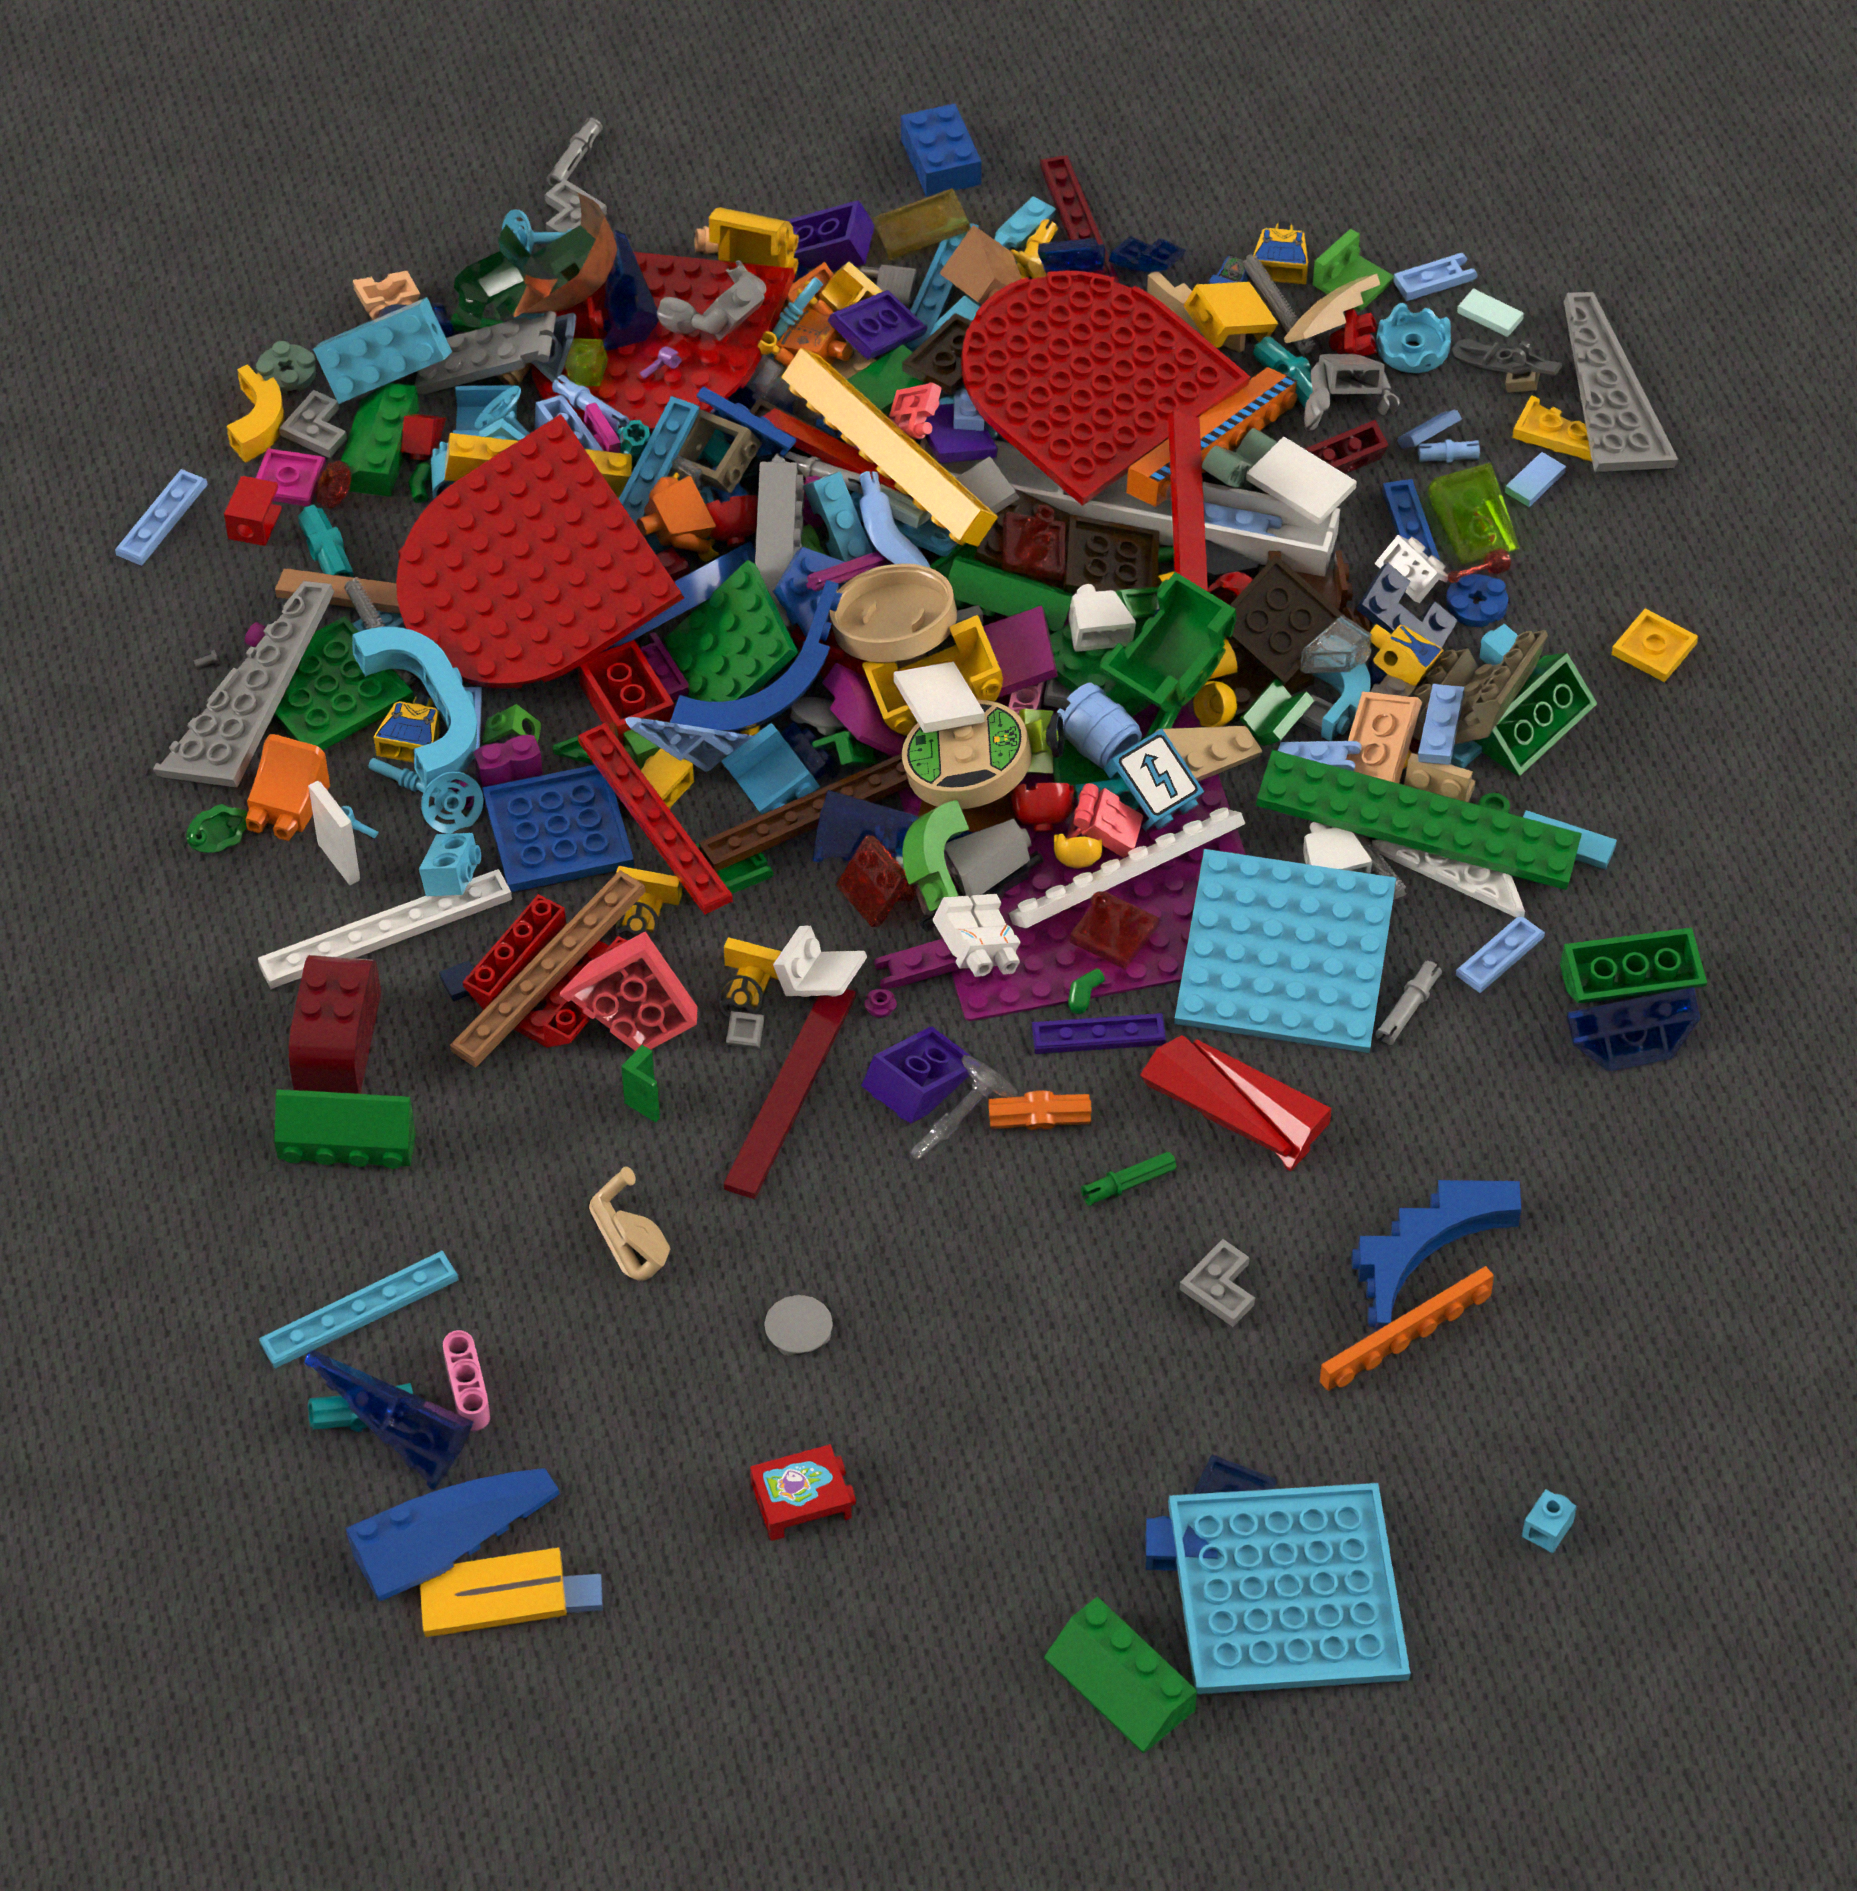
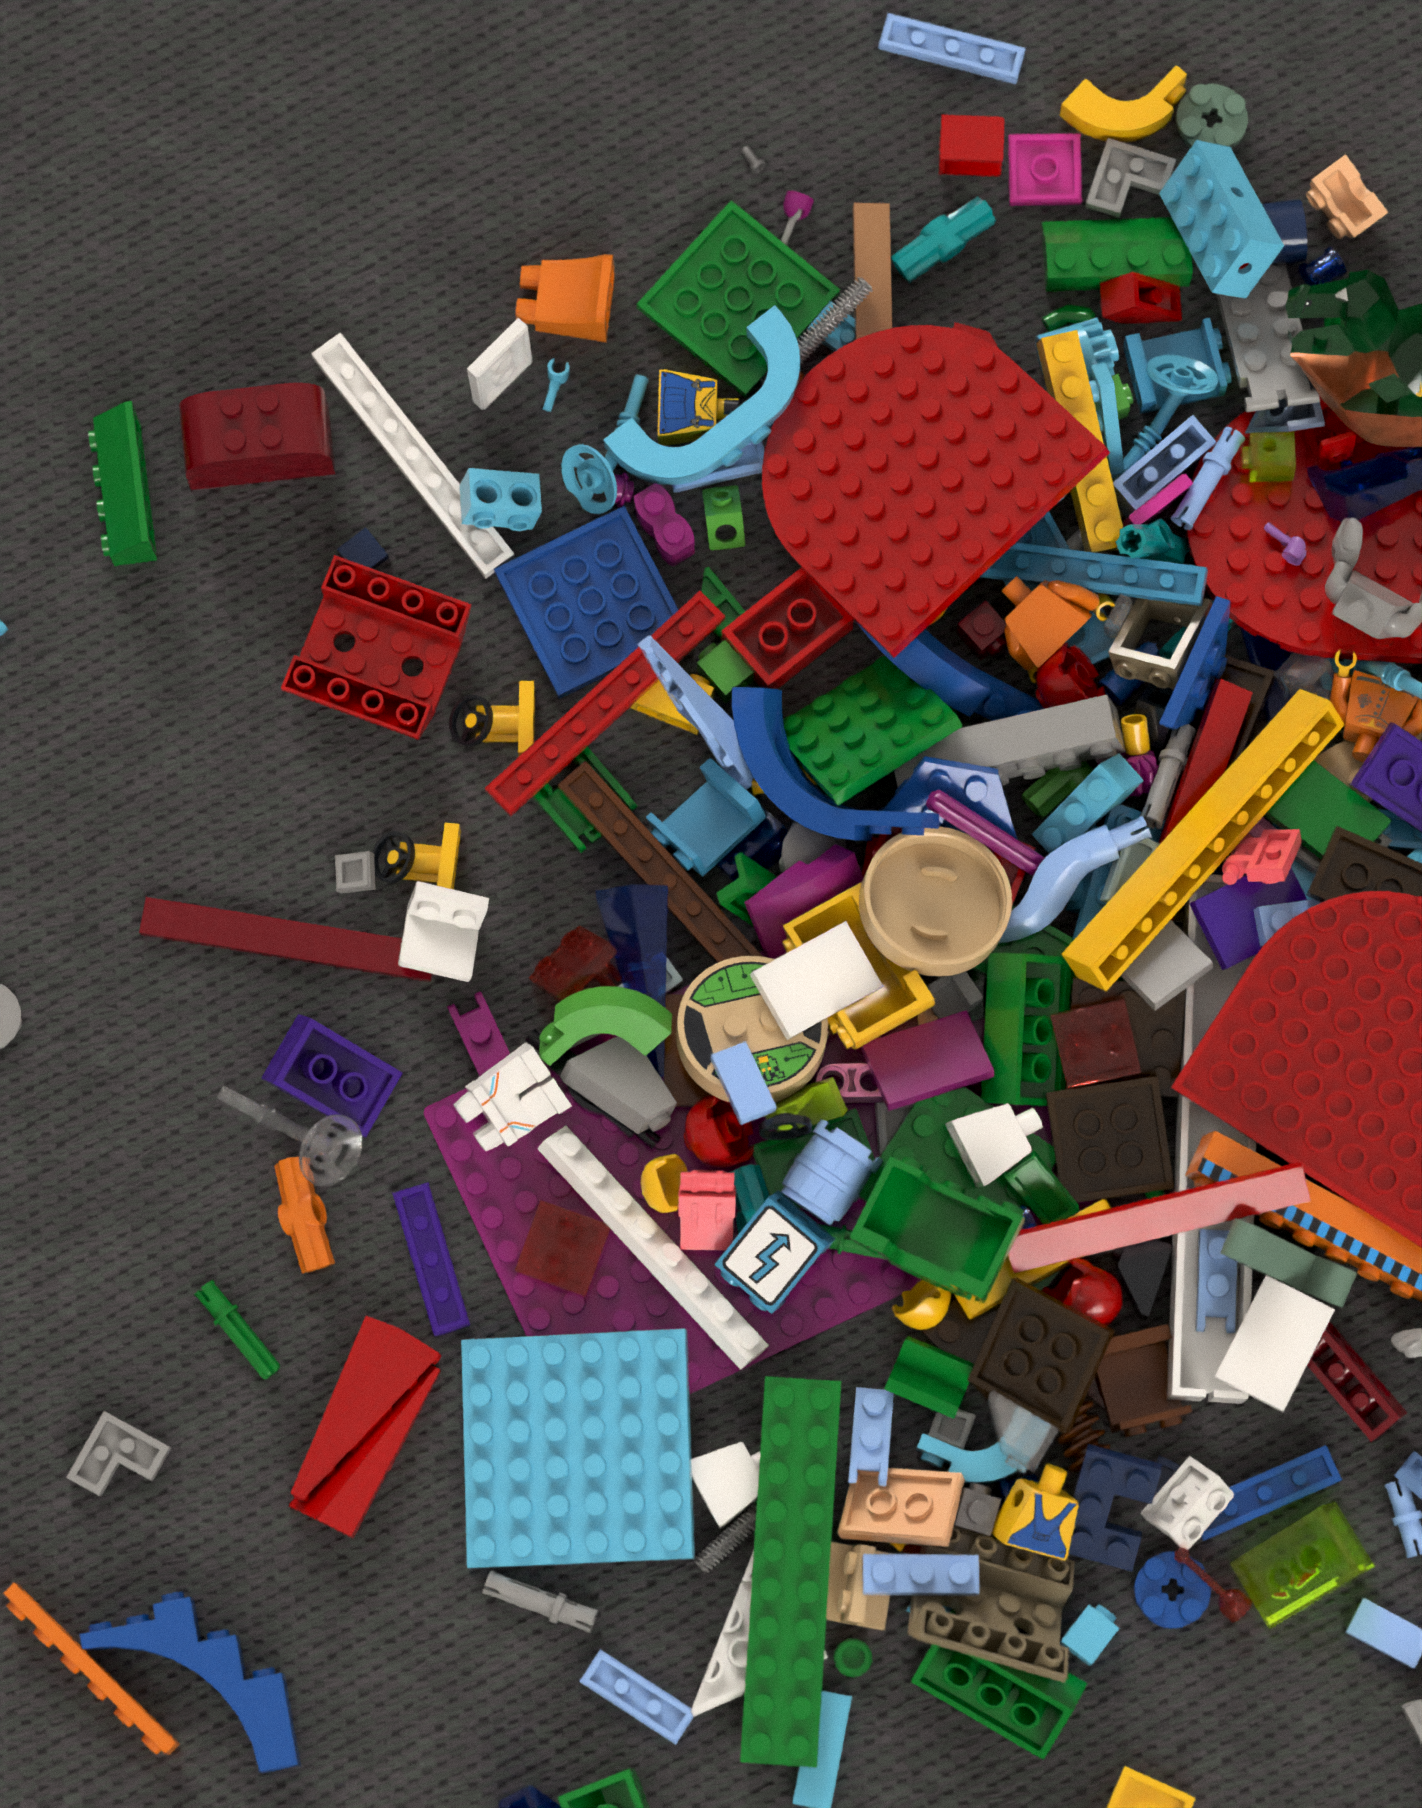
camera: 80 degrees right, 25 degrees up
(216, 829) = (505, 239): green arm -> none
(242, 706) = (655, 213): light grey wing -> none
(333, 484) = (1033, 222): clear red gear -> none
(547, 968) = (381, 641): medium nougat tile -> none
(628, 1231) = (50, 826): tan piece -> none
(634, 994) = (349, 743): coral wedge -> none
(640, 1084) = (241, 771): green panel -> none
(665, 667) = (839, 661): magenta hinge -> none
(880, 1009) = (432, 1012): magenta plate -> none
(1015, 747) = (743, 1083): none -> light blue tile
(1081, 990) = (479, 1228): green arm -> none
(1213, 748) = (848, 1306): tan wing -> none

